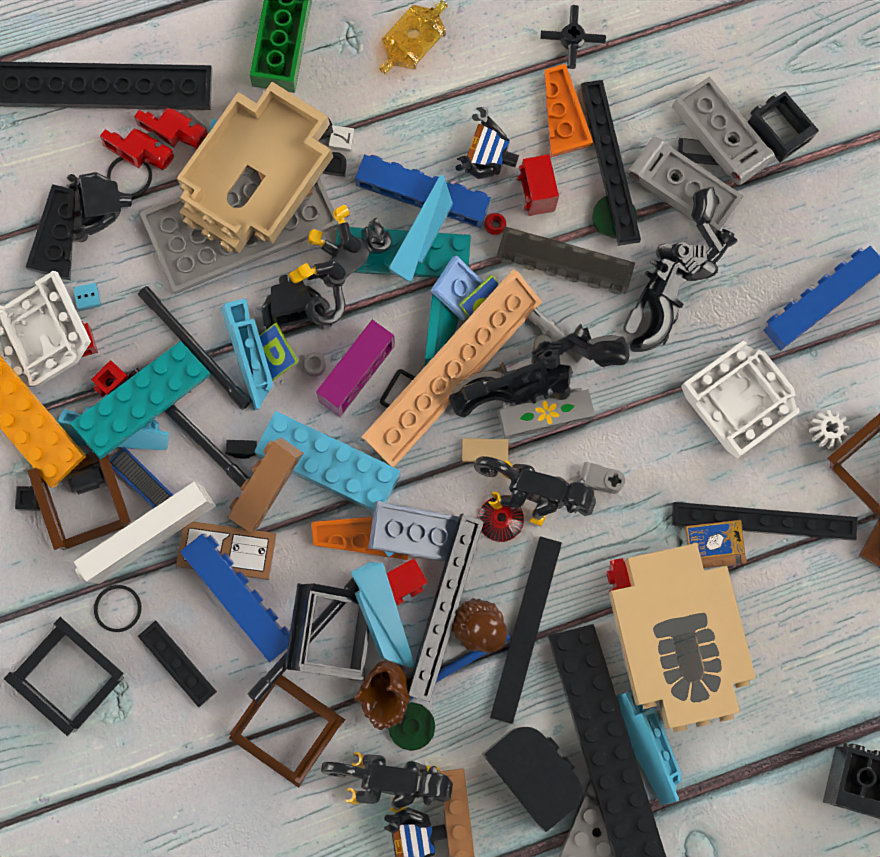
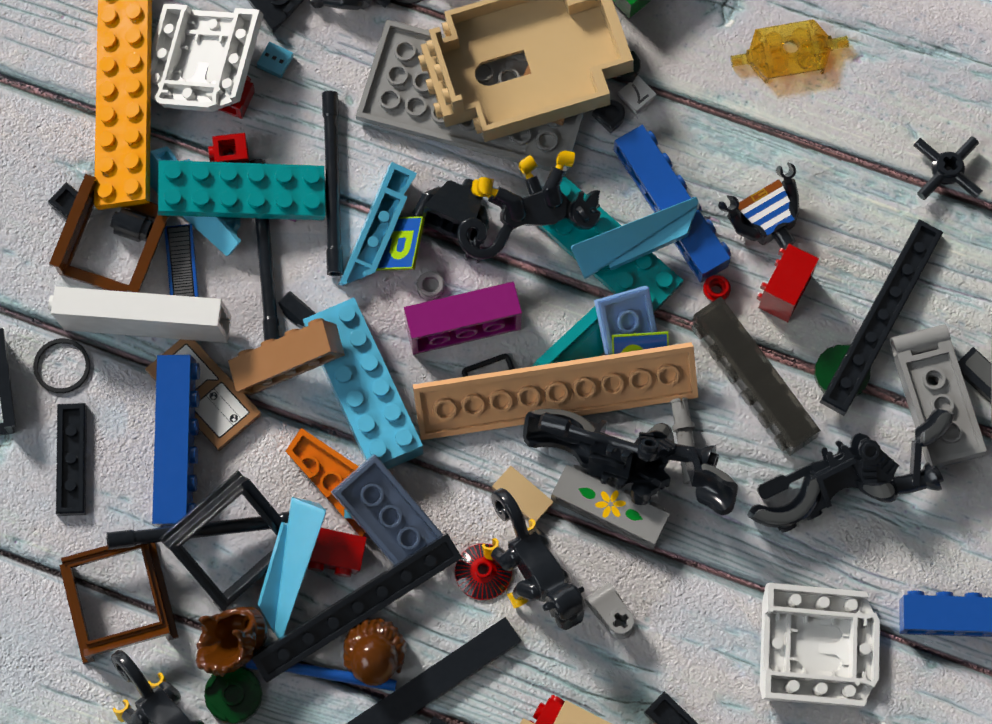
camera: 45 degrees right, 5 degrees down
(565, 117) = (874, 239): orange wing -> none

